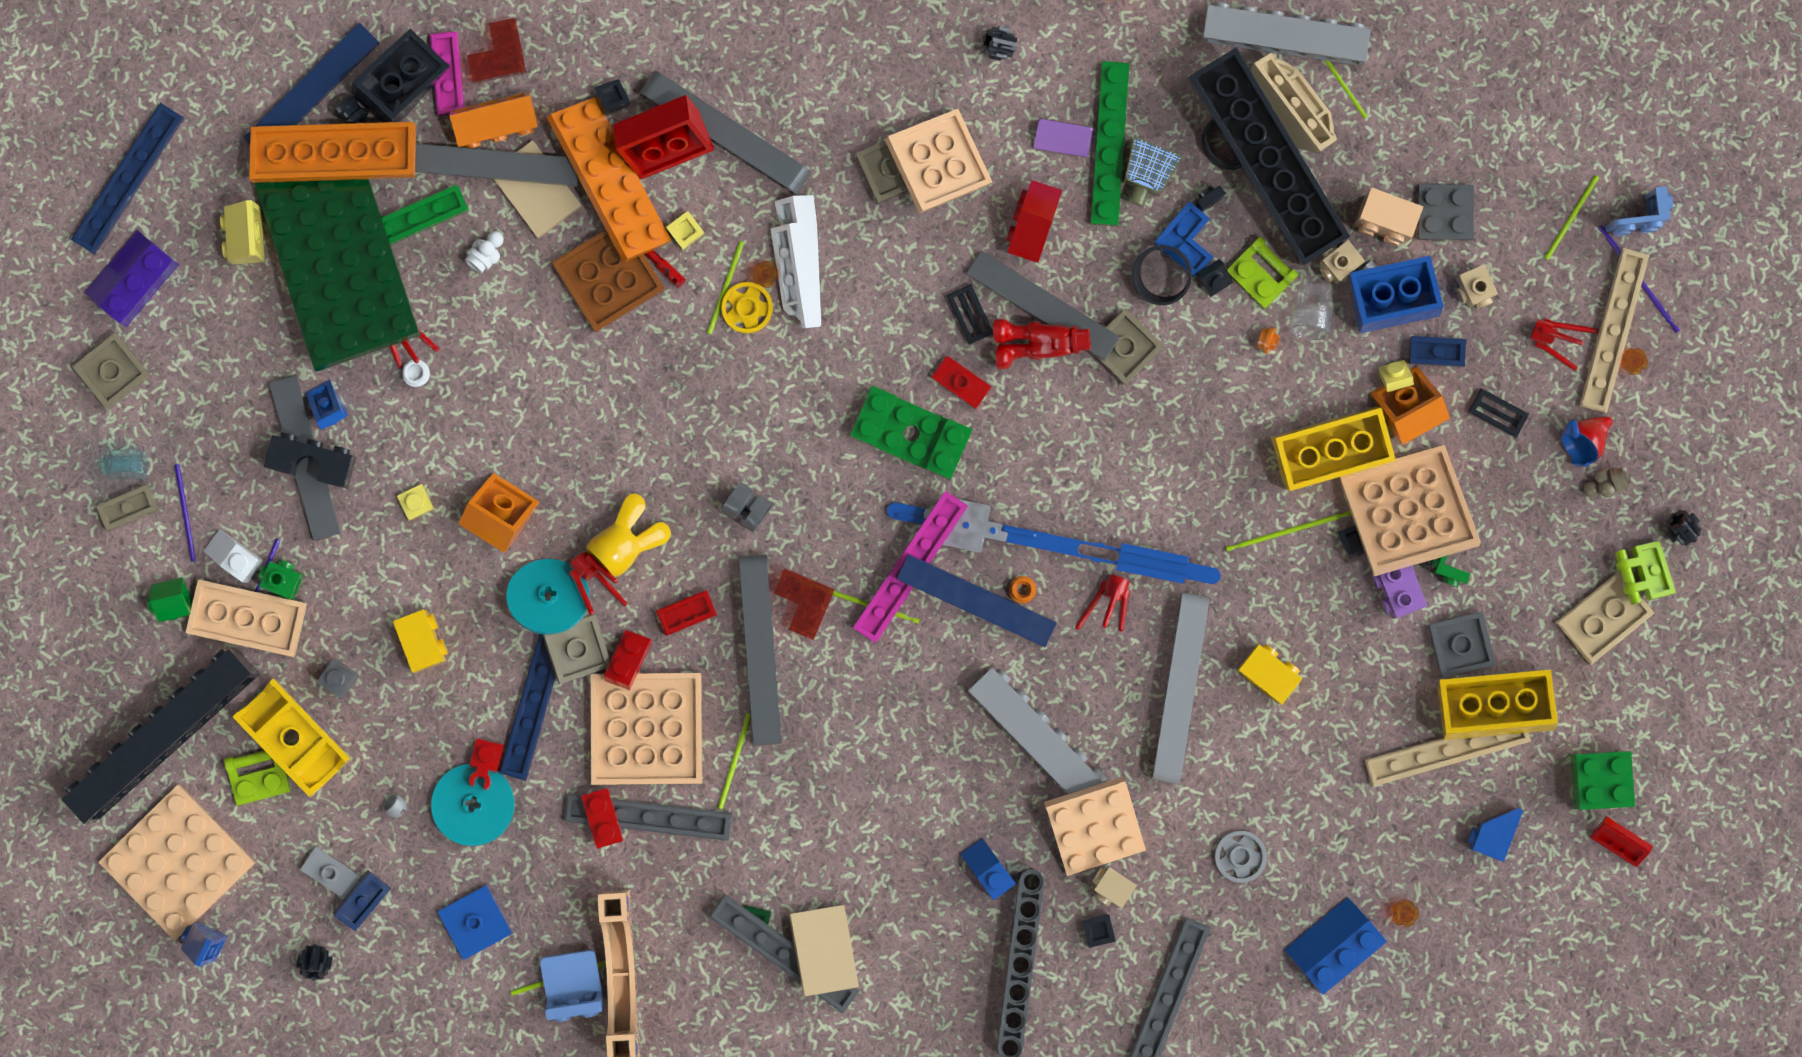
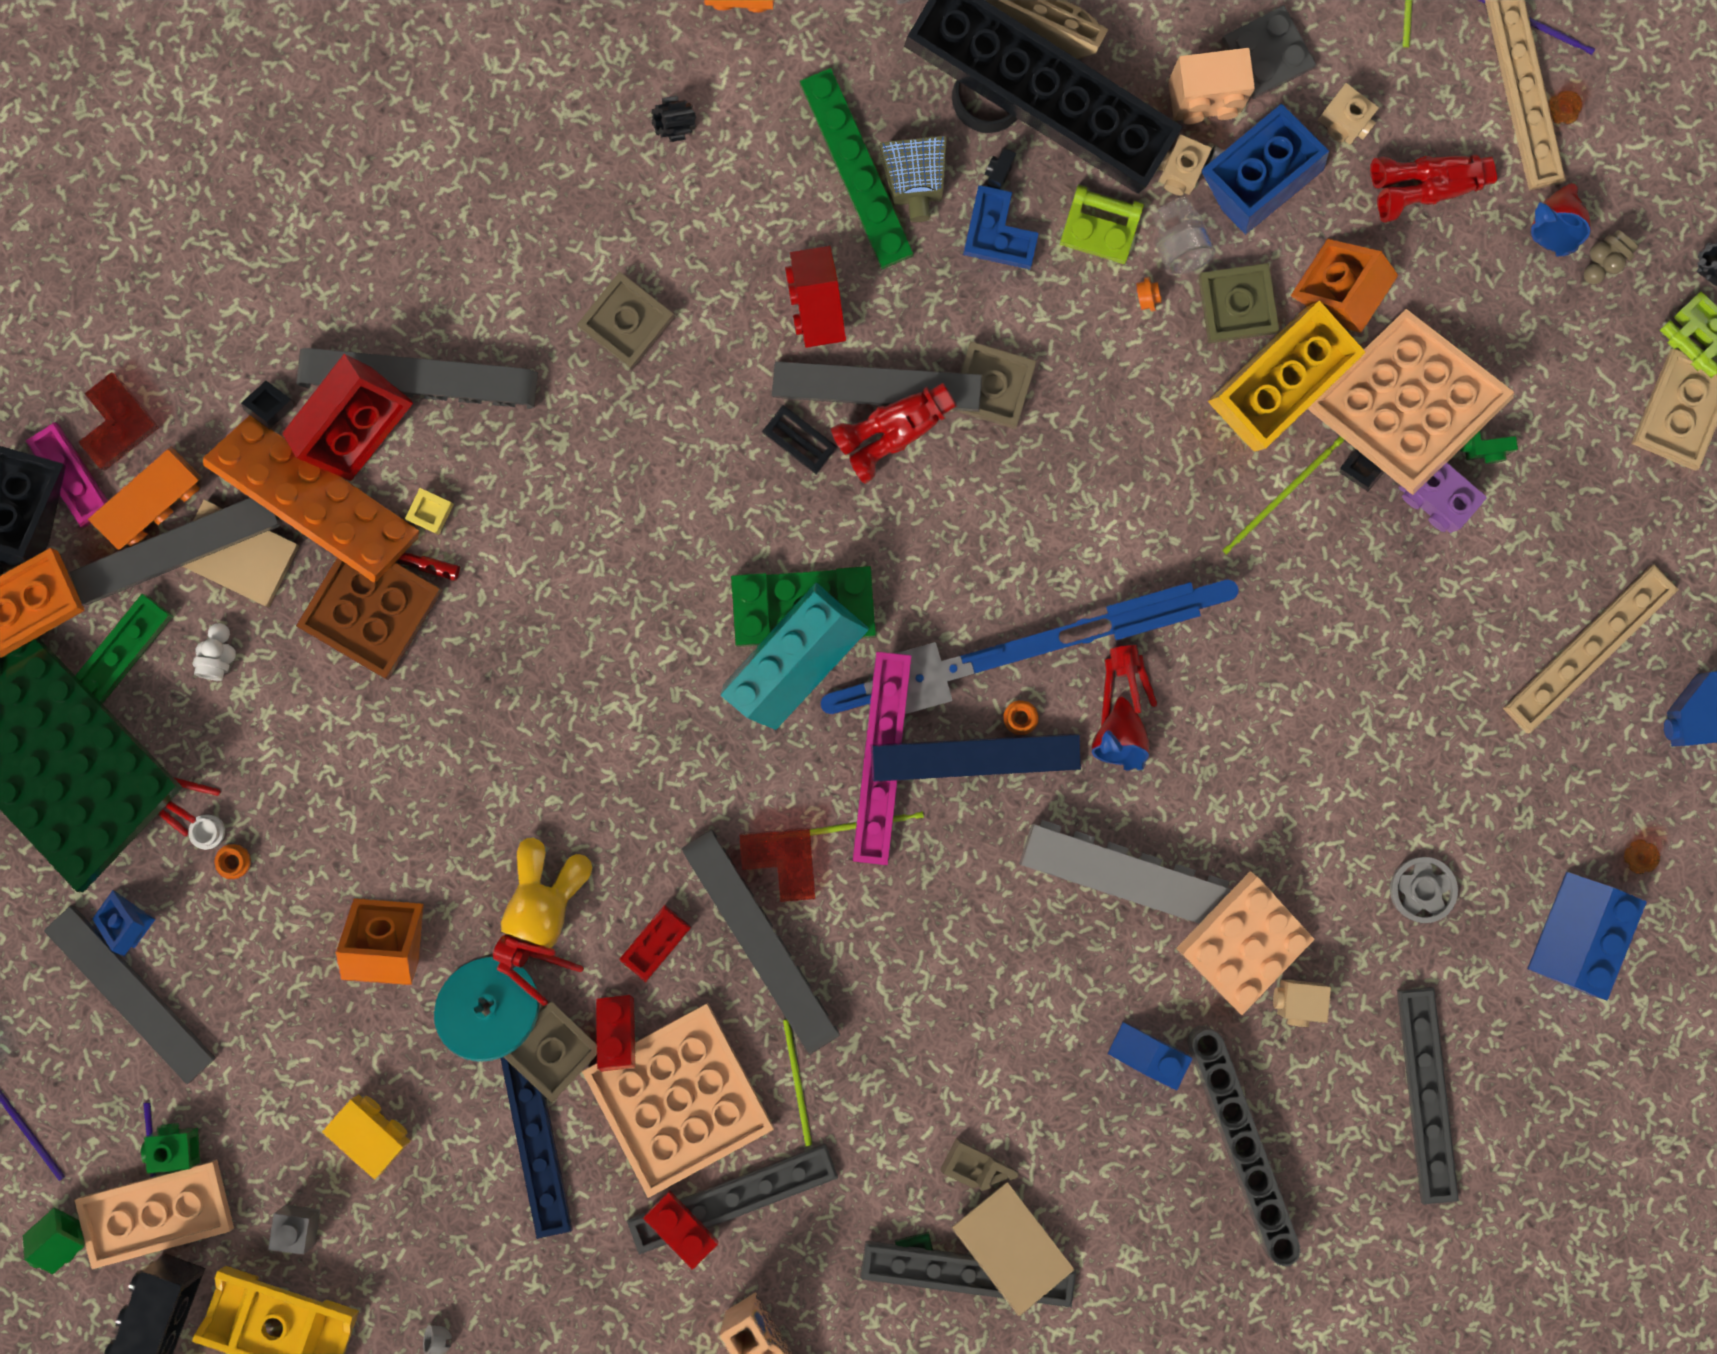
camera: 25 degrees left, 0 degrees up
(233, 556) = (104, 1152): white slope -> none
(334, 465) = (103, 1003): black arch -> none
(414, 403) = (222, 857): none -> orange plate
(415, 502) = (282, 978): light yellow plate -> none
(454, 816) = (549, 1306): teal piece -> none
(486, 759) = (511, 1230): red plate -> none
(725, 287) = (509, 554): lime axle -> none
(738, 501) = (660, 787): dark grey wheel -> none
(747, 307) = (545, 562): yellow wheel -> none
(760, 268) = (536, 514): clear orange plate -> none
(797, 258) = (573, 477): white wedge -> none
(826, 883) = (975, 1167): none -> dark tan slope
(885, 465) = (793, 658): none -> teal slope
(938, 161) = (673, 284): light nougat plate -> none
(961, 382) = (829, 520): red plate -> none
(1063, 138) = (800, 188): medium lavender slope -> none
(1085, 640) = (1122, 738): none -> hat
(1098, 930) = (1310, 1059): black plate -> none
(1144, 292) = (985, 314): black tyre -> none
(1181, 688) = (1259, 735): light grey beam -> none
(1214, 277) = (1052, 255): black plate -> none
(1270, 673) = (1348, 666): yellow brick -> none
(1328, 379) = (1238, 303): none -> olive plate
(1396, 375) = (1311, 260): light yellow plate -> none
(1437, 351) = (1342, 209): dark blue plate -> none
(1461, 644) = (1544, 522): dark grey plate -> none
(1477, 402) = (1416, 244): black tile -> none
(1497, 704) = (1624, 567): yellow brick -> none
(1517, 363) = (1439, 178): none -> red piece
(1546, 332) = (1453, 124): red plant -> none

